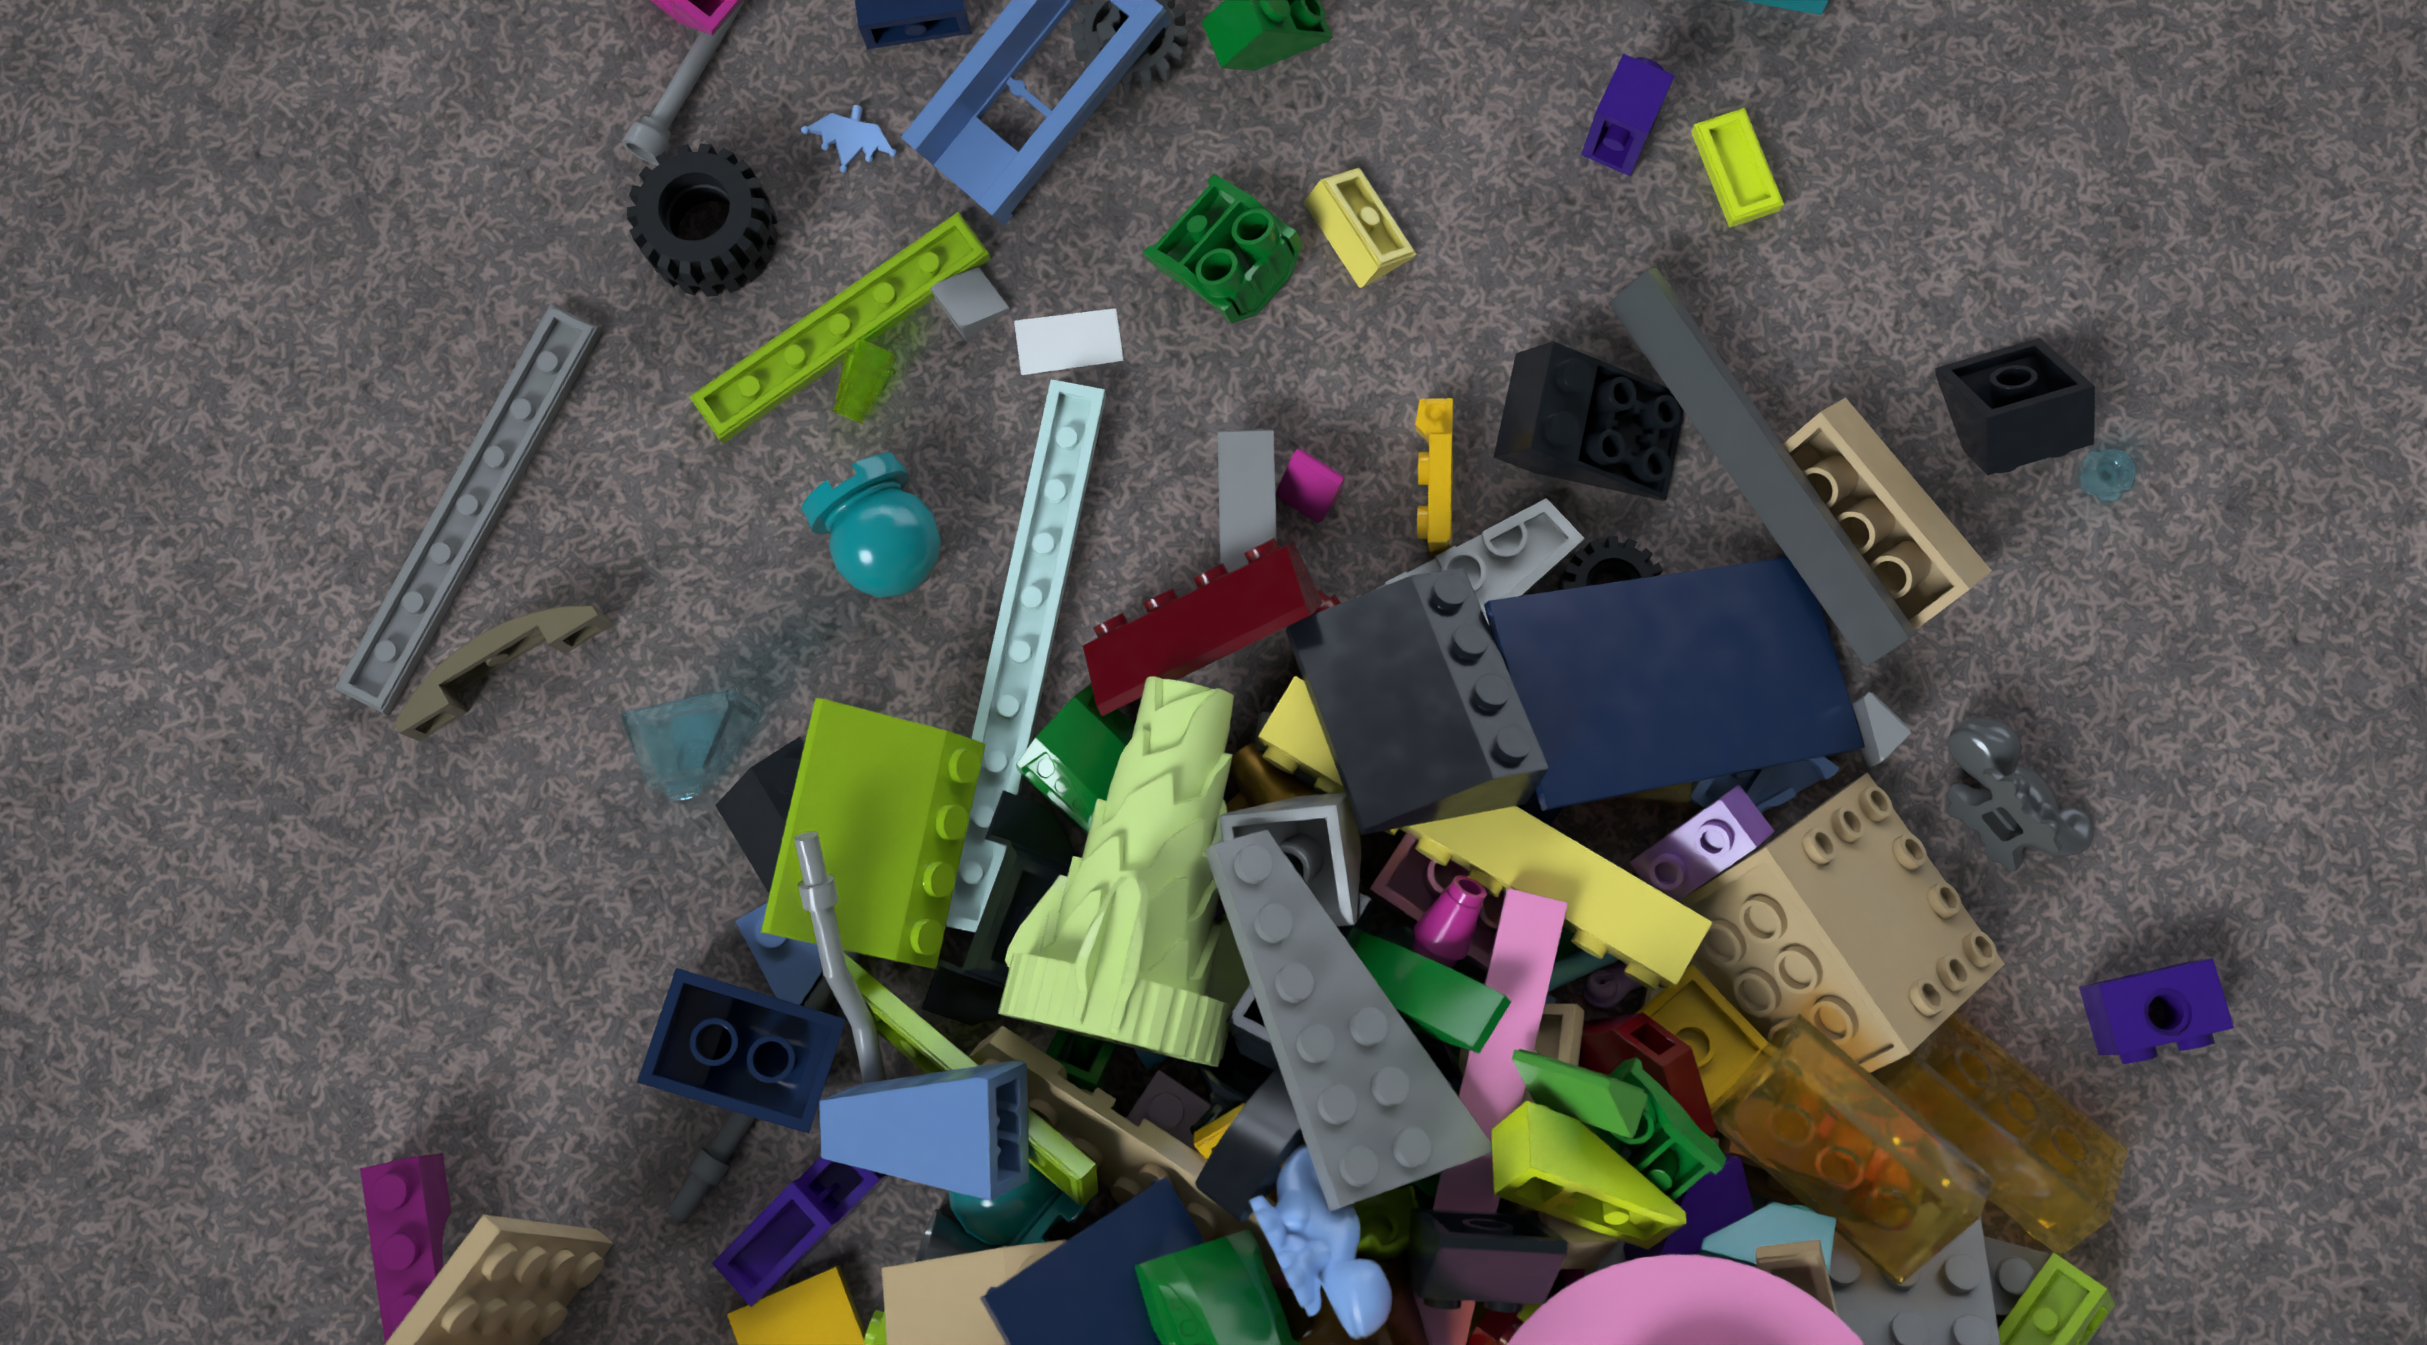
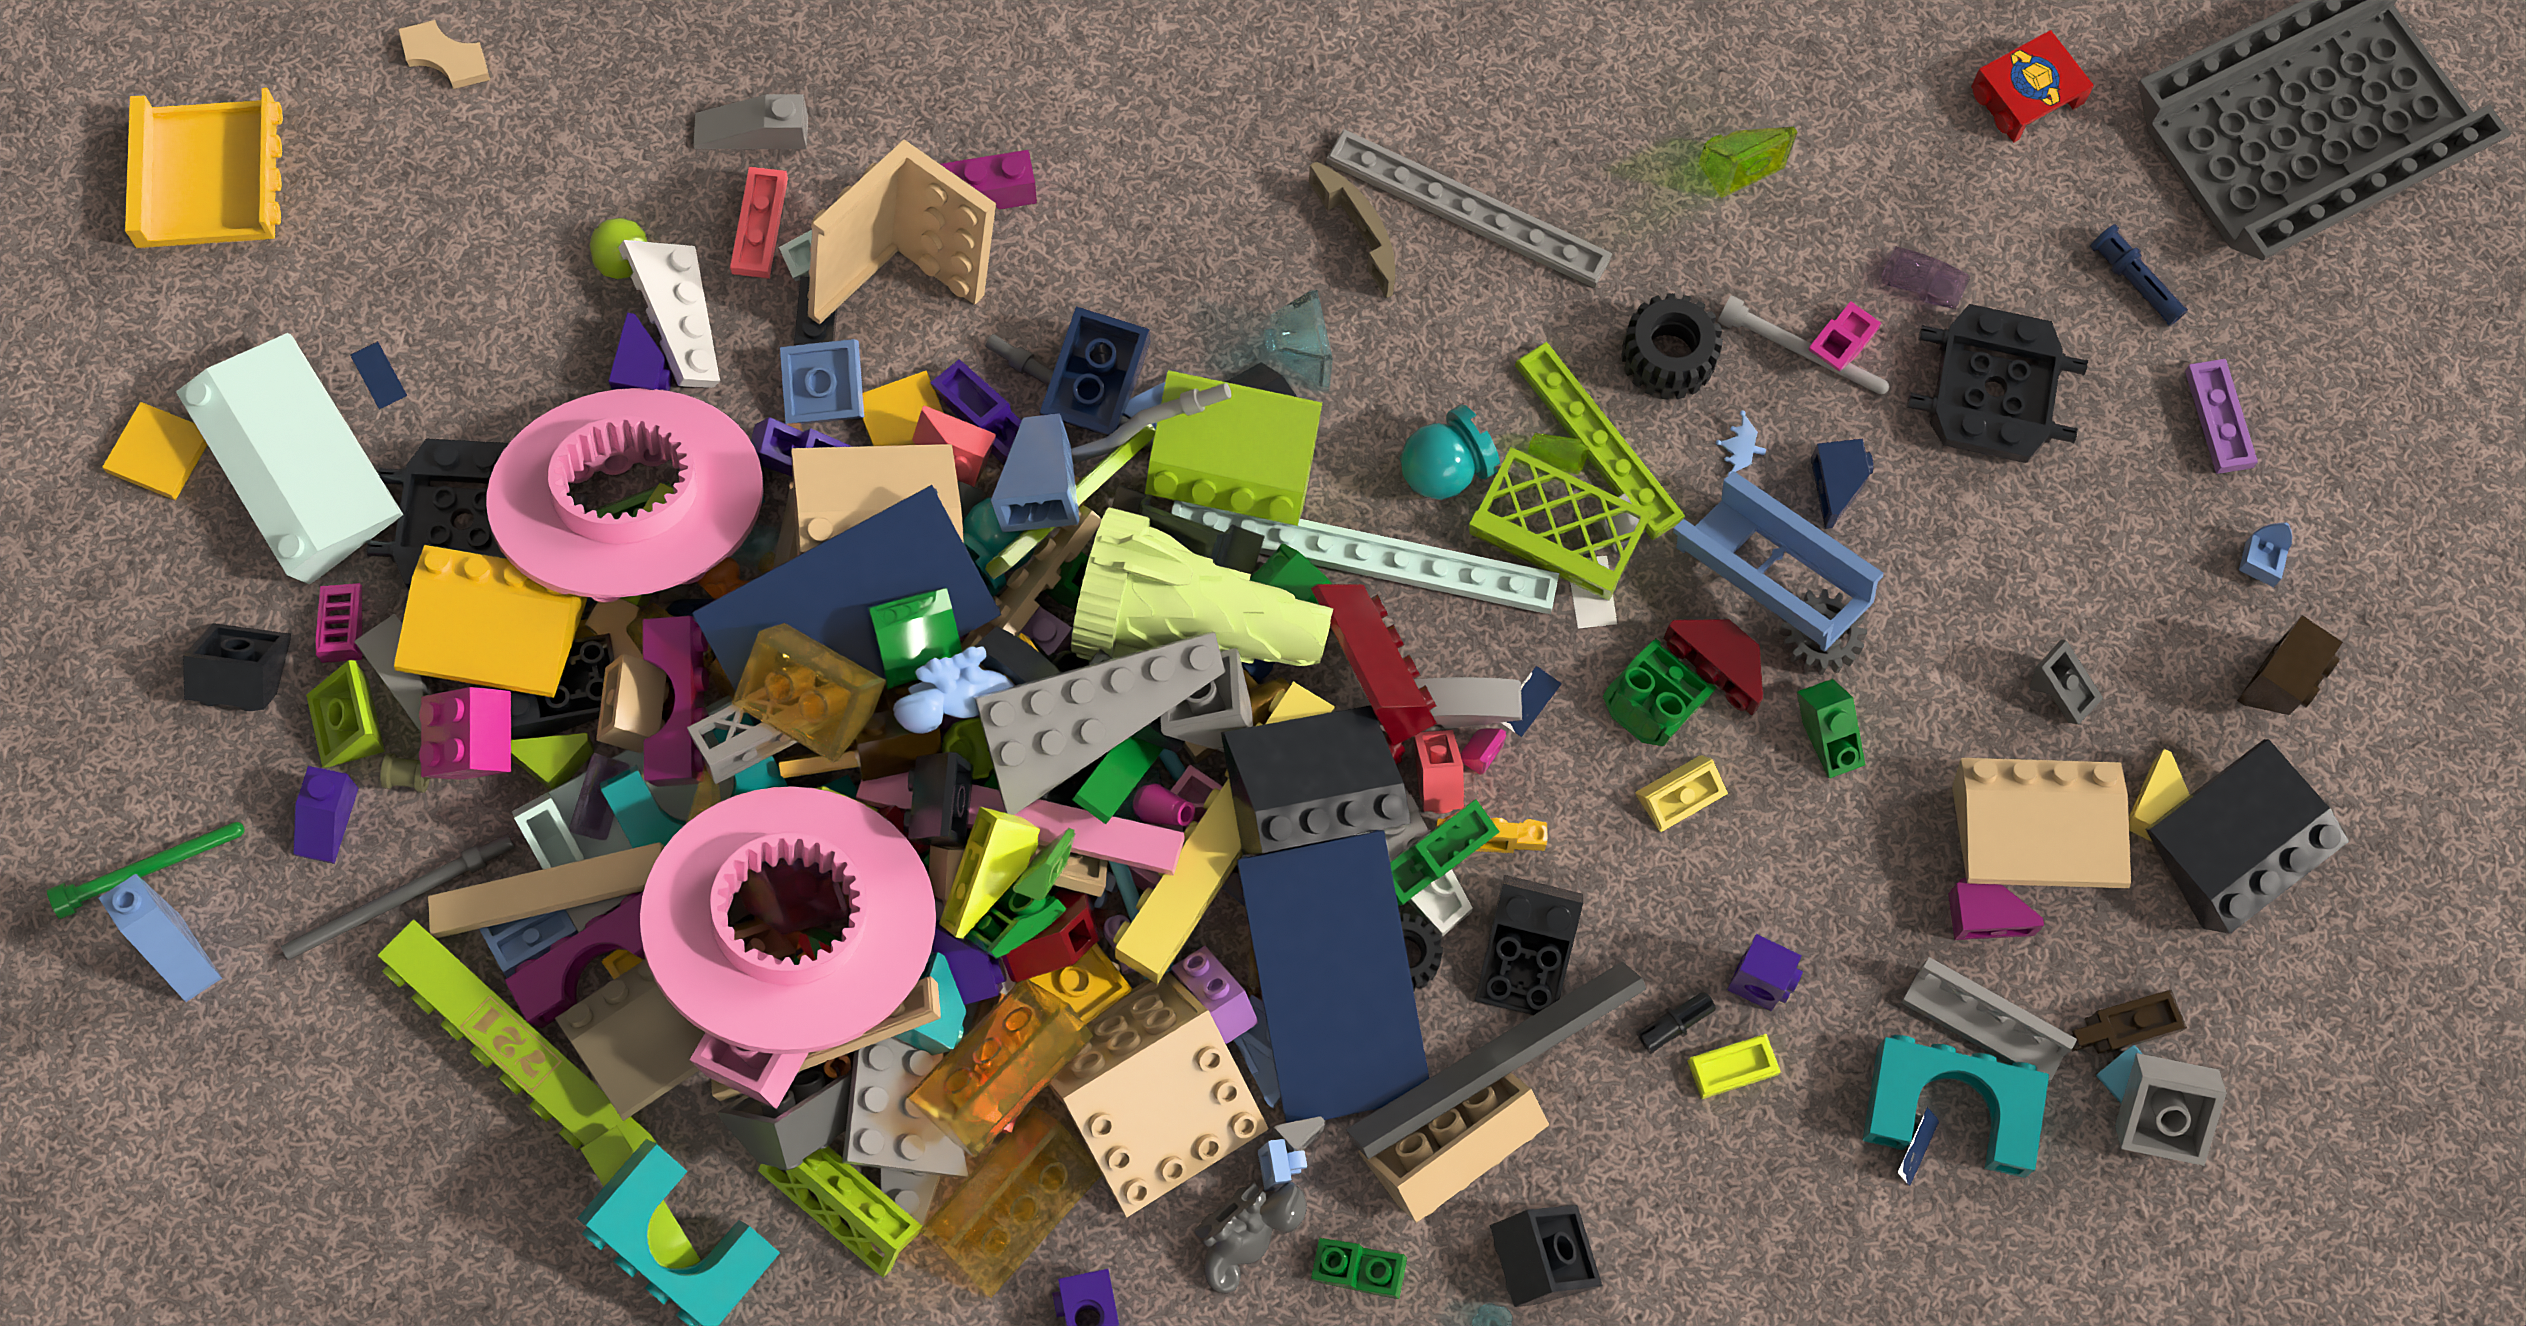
camera: 80 degrees right, 10 degrees down
(402, 115) = (1745, 157): none -> clear neon green slope
(849, 1271) = (969, 443): none -> coral slope
(1019, 397) = (1545, 553): none -> lime fence
(1172, 162) = (1721, 657): none -> dark red slope
(1215, 412) = (1535, 694): none -> dark blue sticker
(1352, 541) = (1439, 771): none -> coral slope
(1479, 533) = (1441, 850): none -> green slope
(1685, 235) = (1675, 1022): none -> black axle
(1922, 757) = (1278, 1164): none -> light blue tile
(2045, 648) = (1359, 1268): none -> green slope

